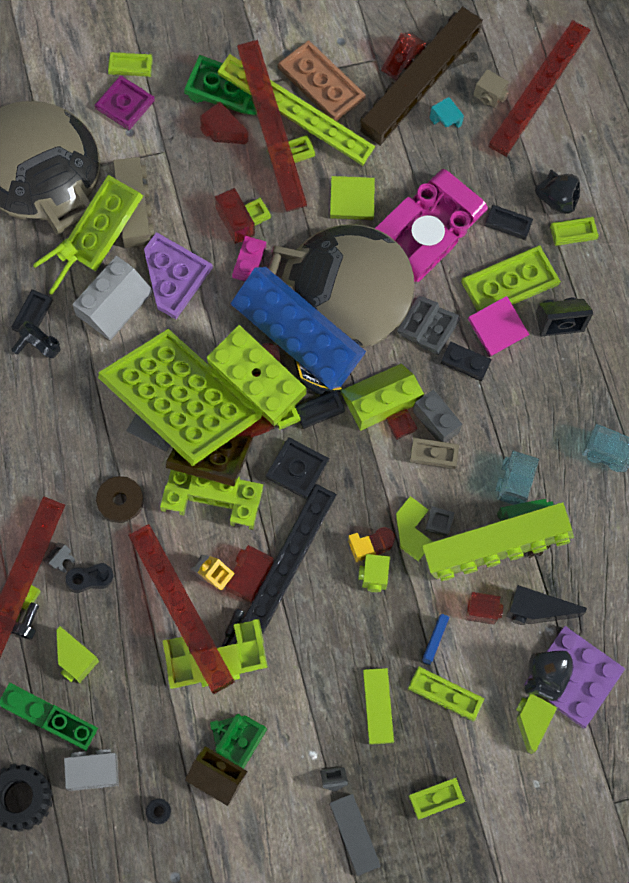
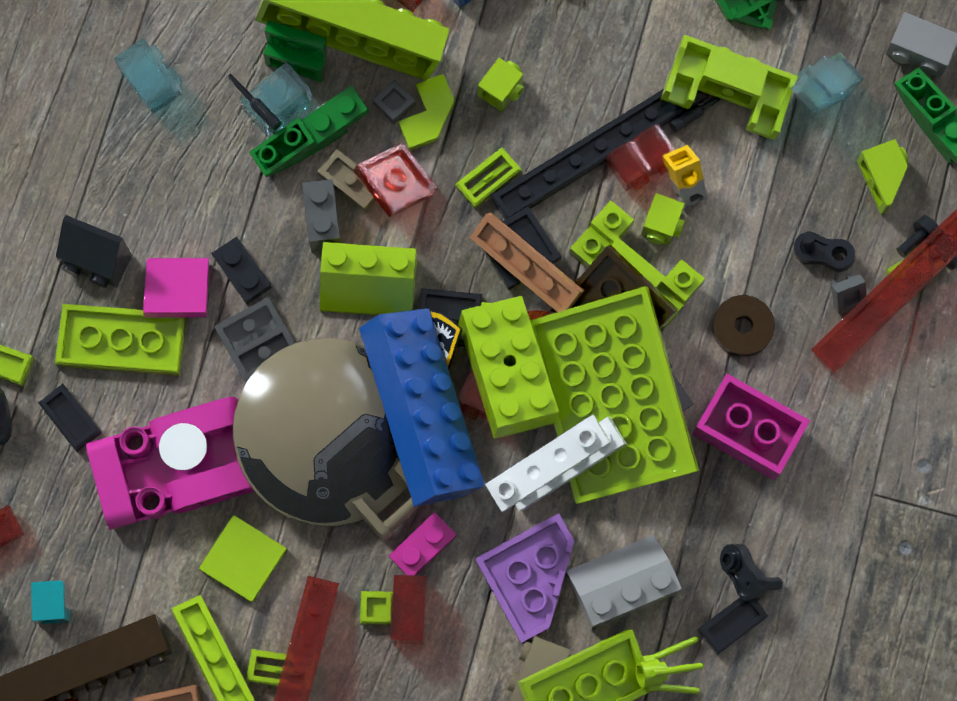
camera: 145 degrees left, 5 degrees up
(79, 428) = (751, 427): none -> dark pink brick
(146, 695) = (826, 82): none -> clear light blue brick
(182, 609) = (742, 150): clear red plate -> none
(190, 329) = (556, 463): none -> white fence
(210, 537) = (663, 220): none -> lime brick
(284, 450) = (526, 263): none -> nougat plate
(339, 525) = (499, 184): none -> lime tile
(373, 544) = (485, 116): leg -> none
(401, 424) = (366, 233): clear red tile -> none
(404, 467) = (395, 179): none -> clear red tile
(480, 467) = (311, 134): none -> green slope
(525, 459) = (258, 106): none -> black piece

